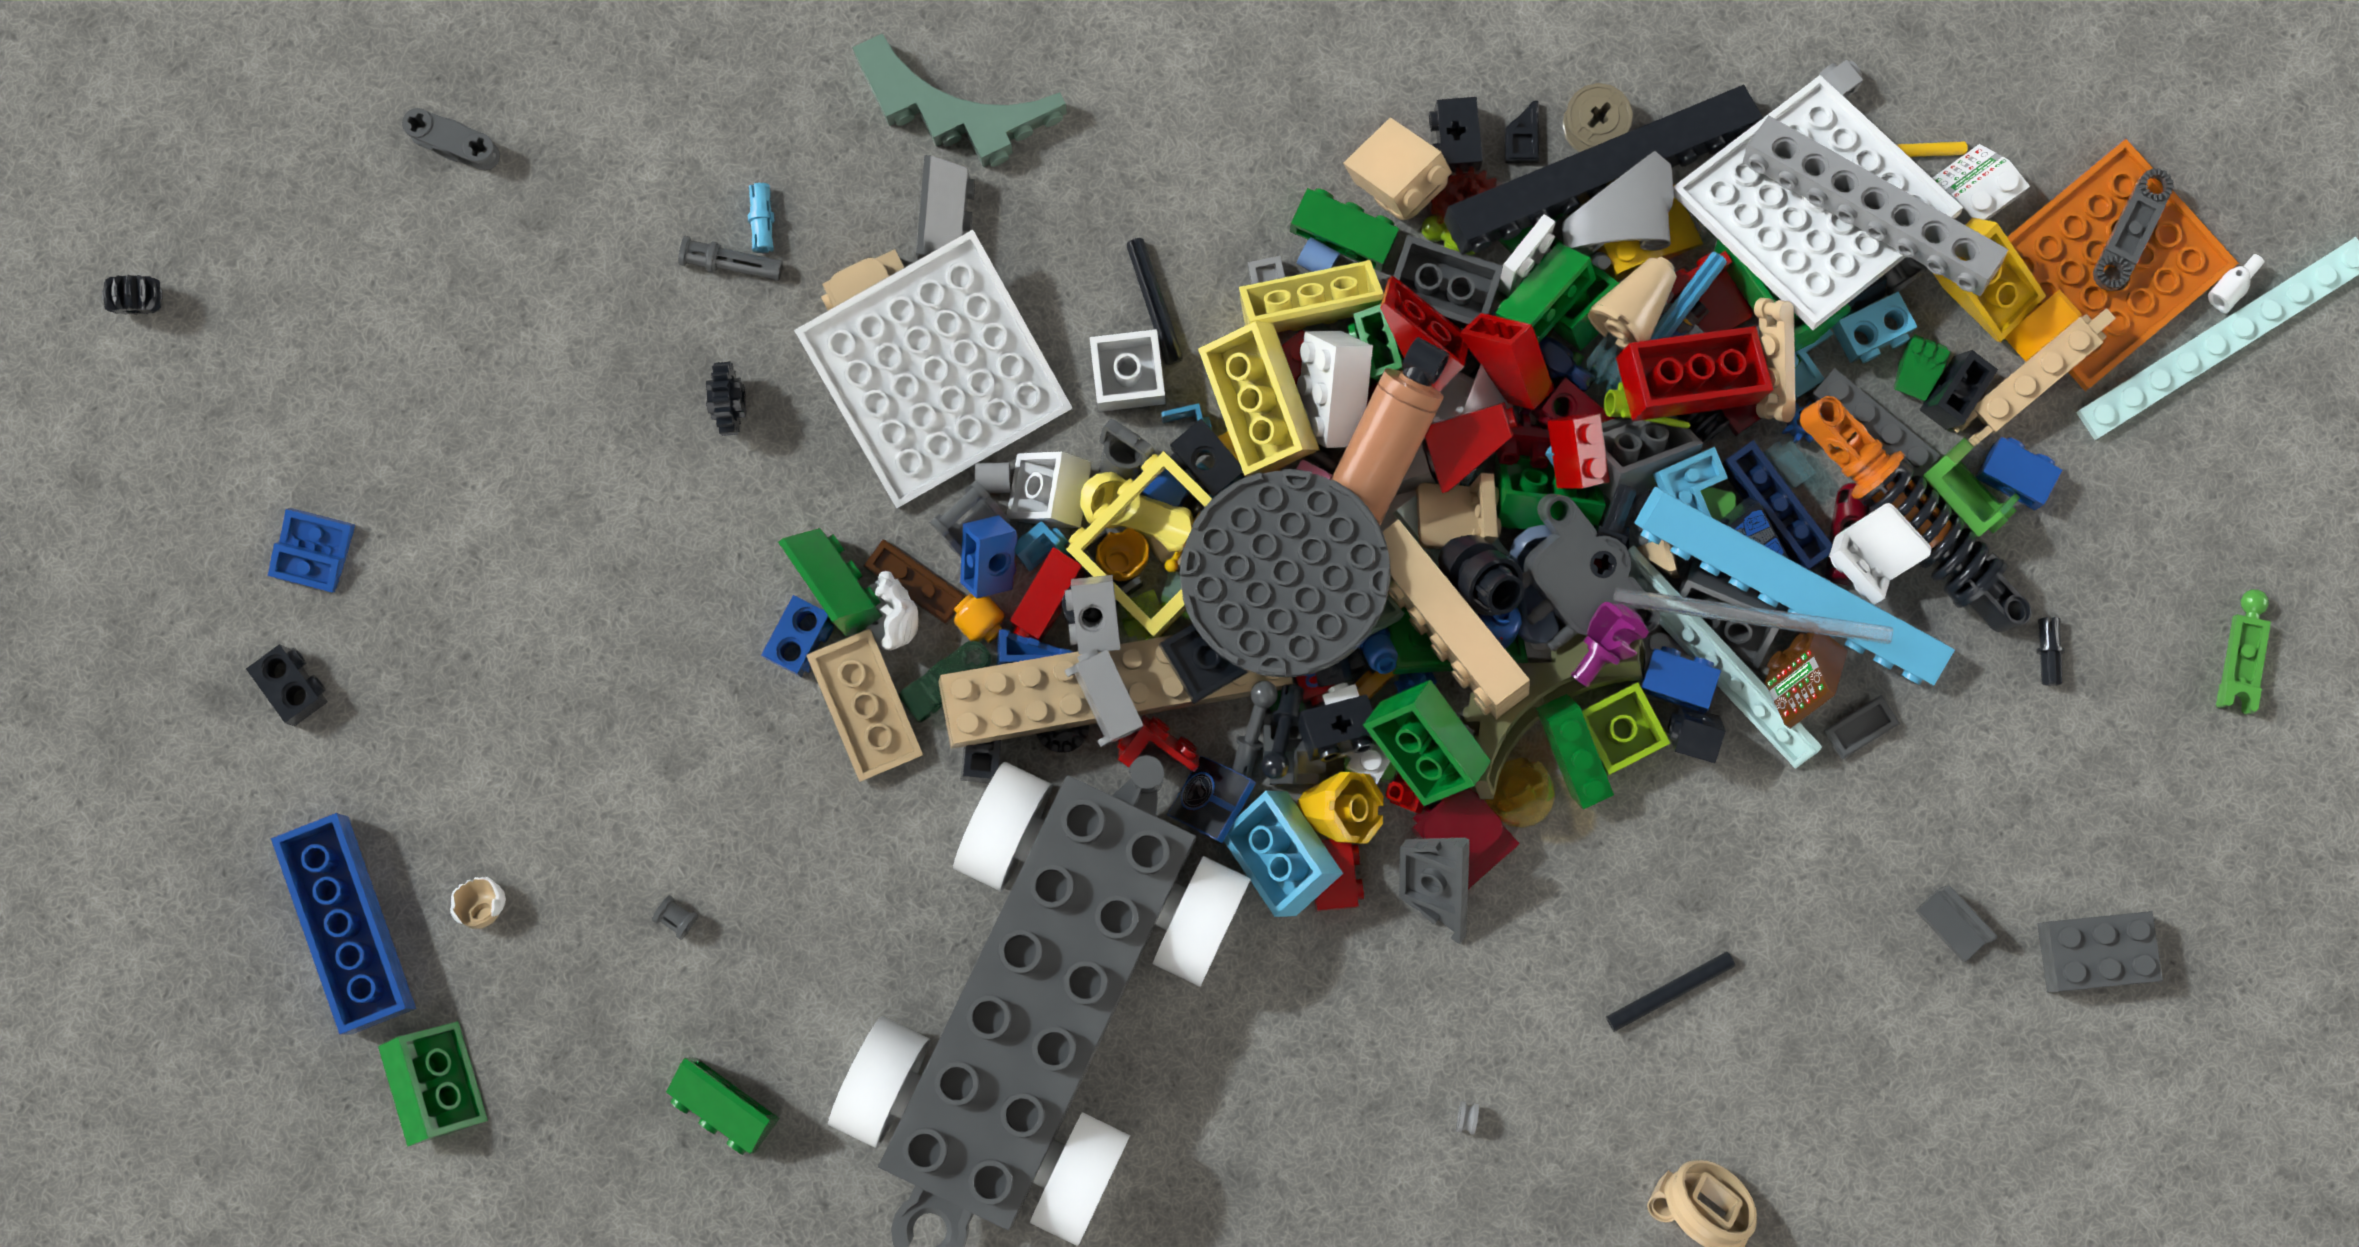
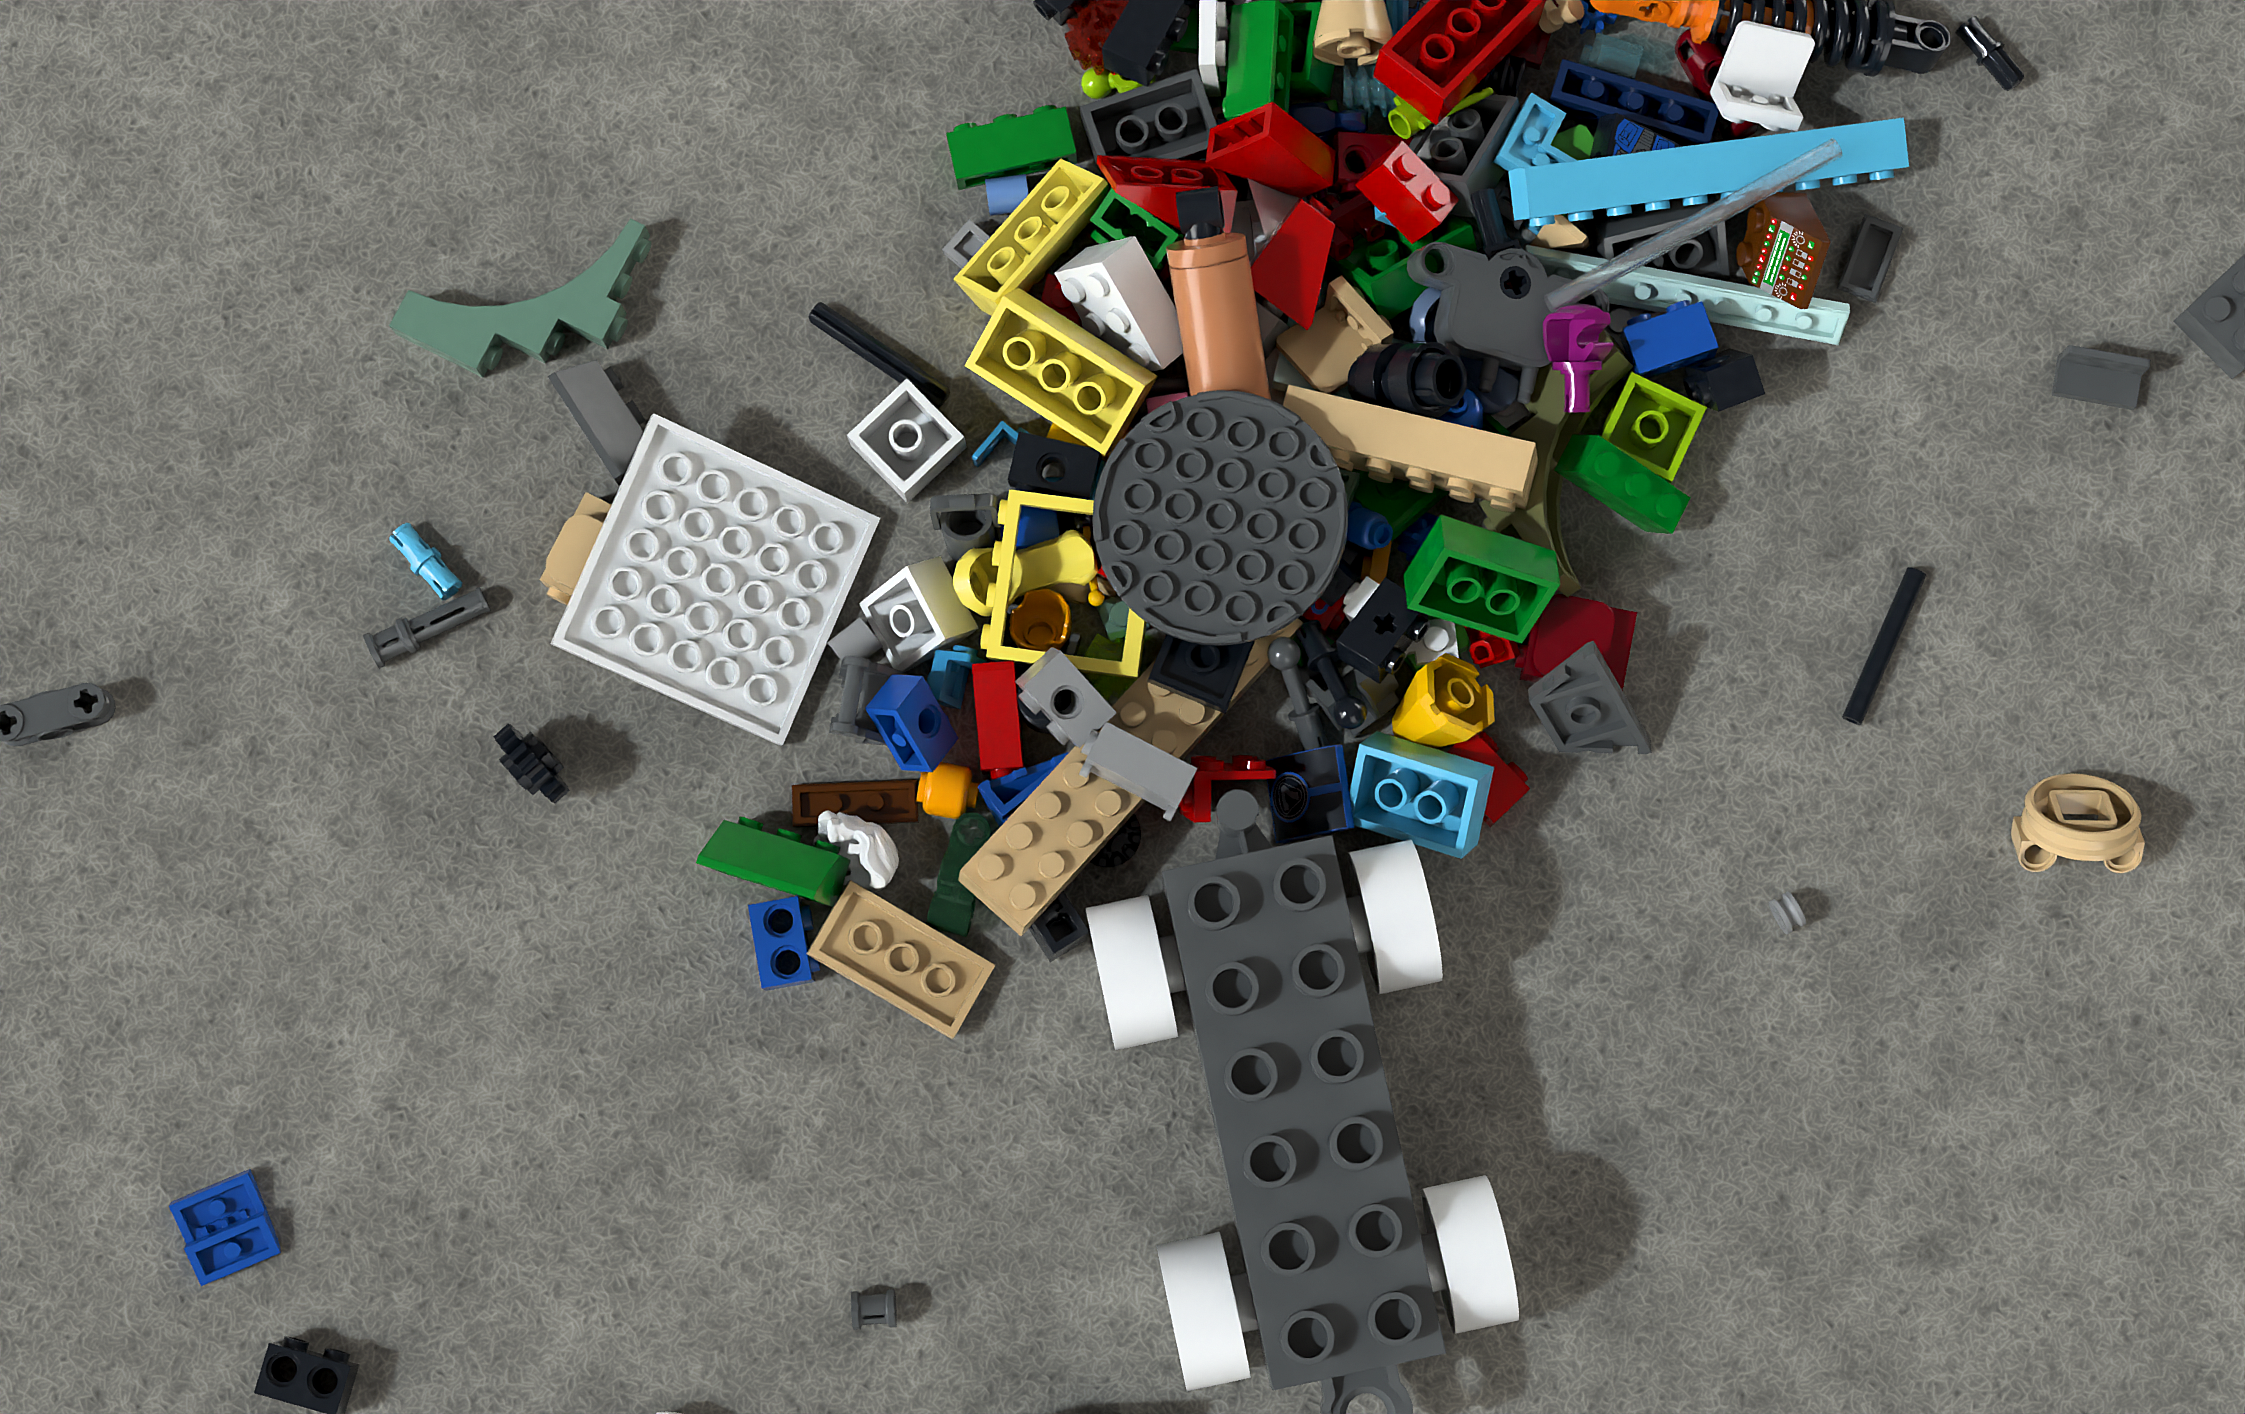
camera: 35 degrees left, 0 degrees up
(1398, 170) = (1021, 50): tan brick -> none
(1523, 793) = (1604, 561): clear yellow cylinder -> none

